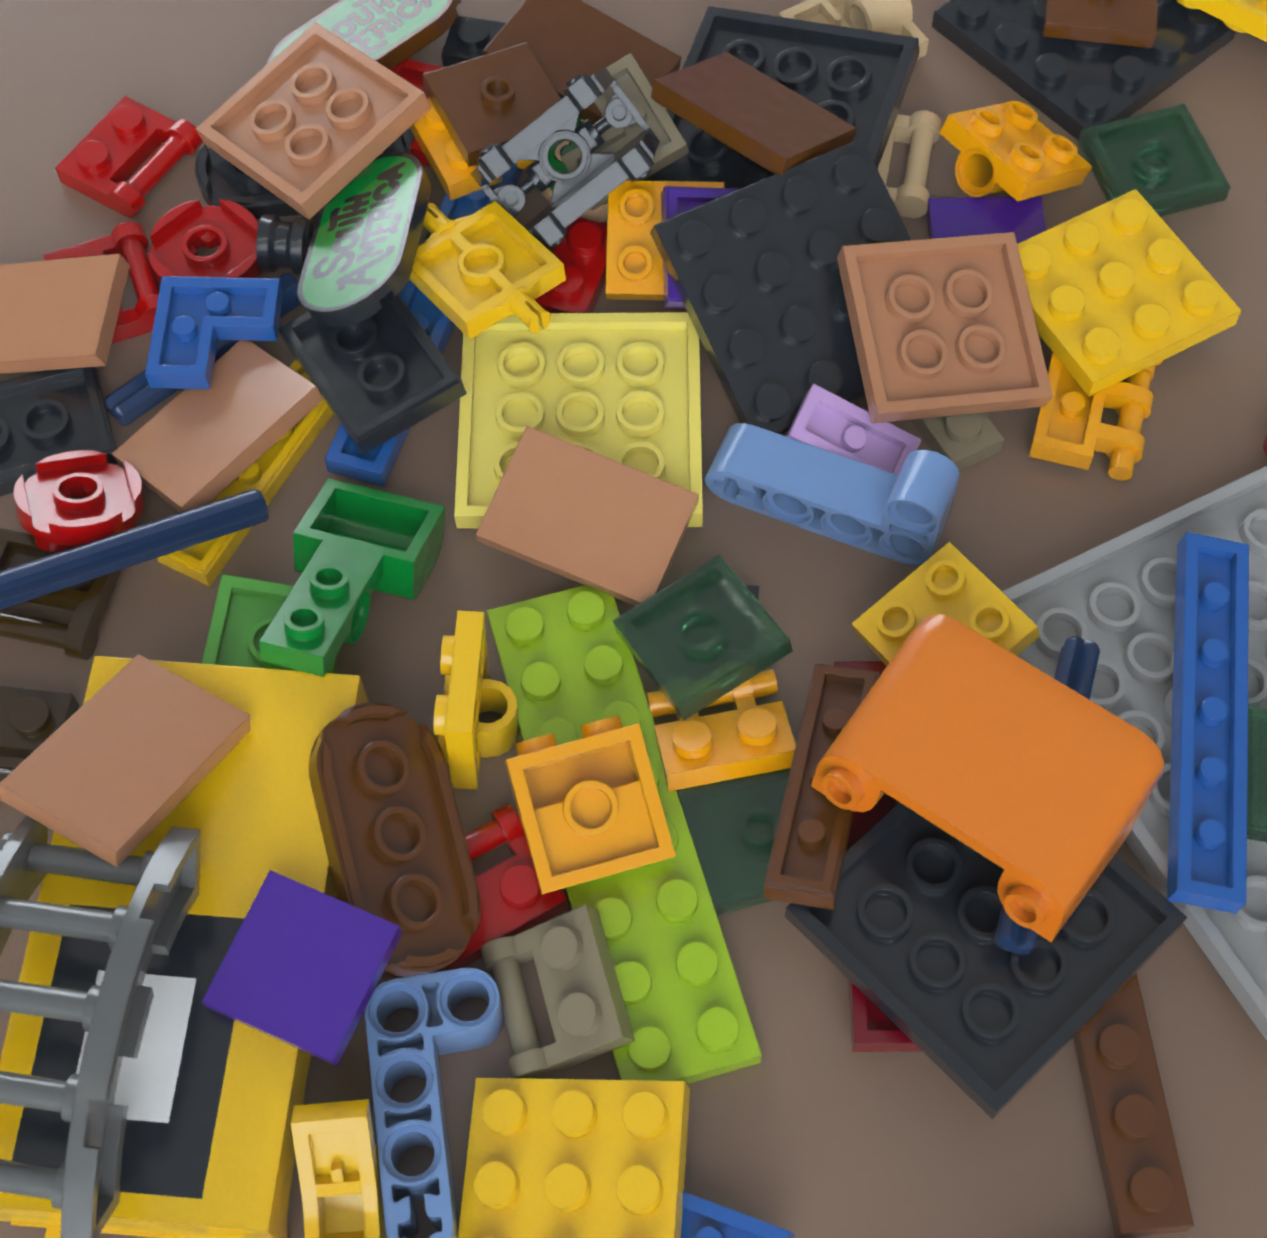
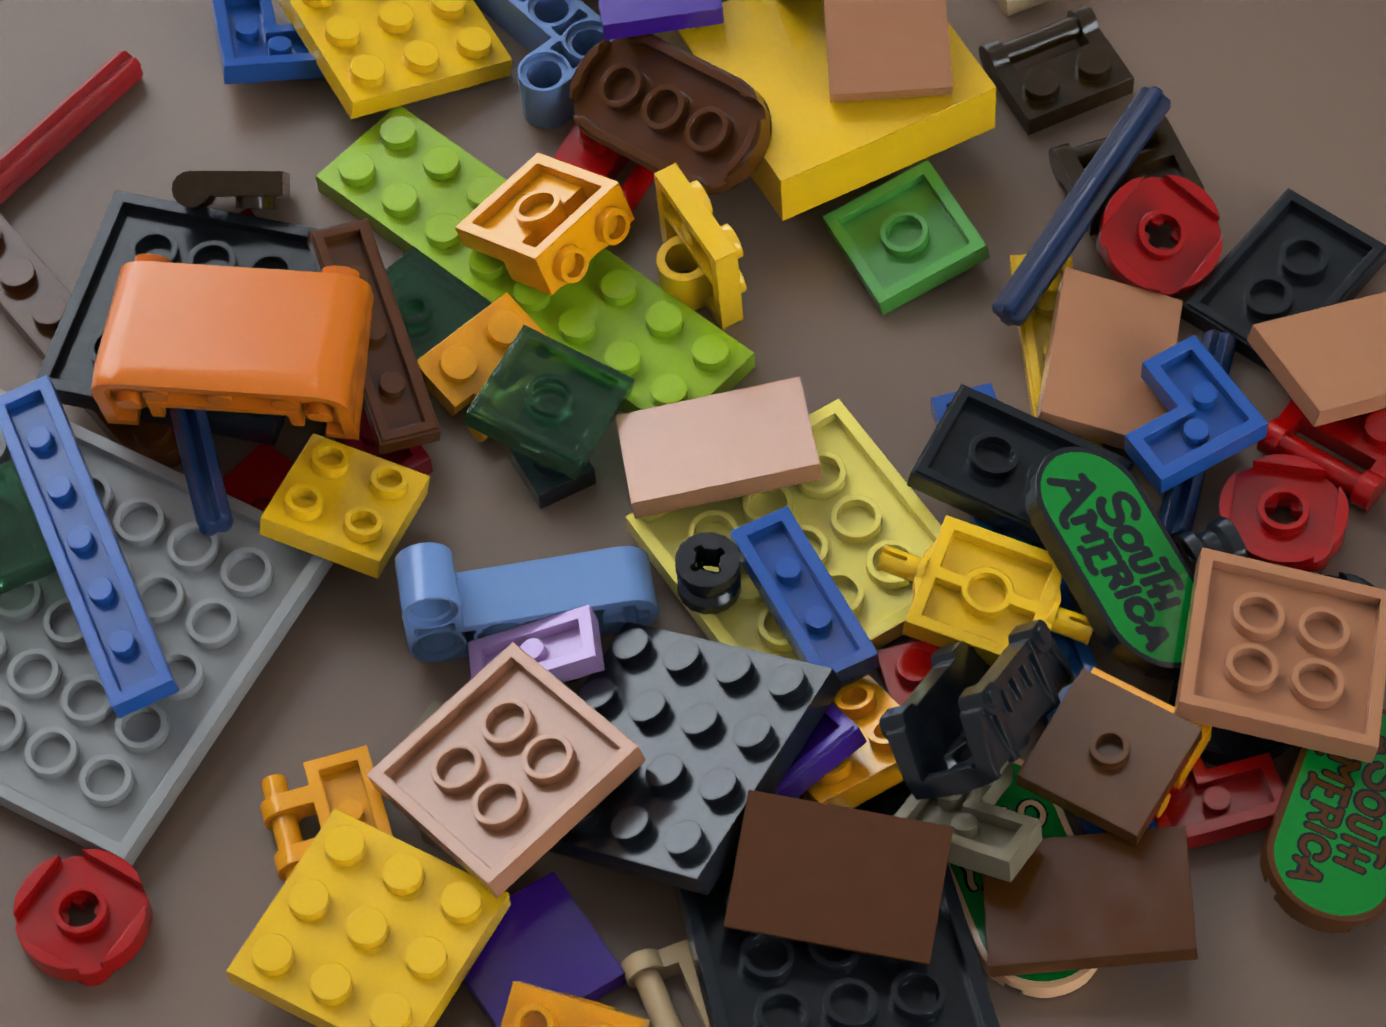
camera: 150 degrees right, 5 degrees down
(346, 549) = (890, 329): green plate -> none
(468, 39) = (1237, 899): black plate -> none
(576, 987) = (478, 137): dark tan plate -> none
(618, 347) = (803, 595): none -> blue plate
(665, 413) = (708, 590): none -> black wheel
(843, 1044) = (250, 188): none -> dark brown plate

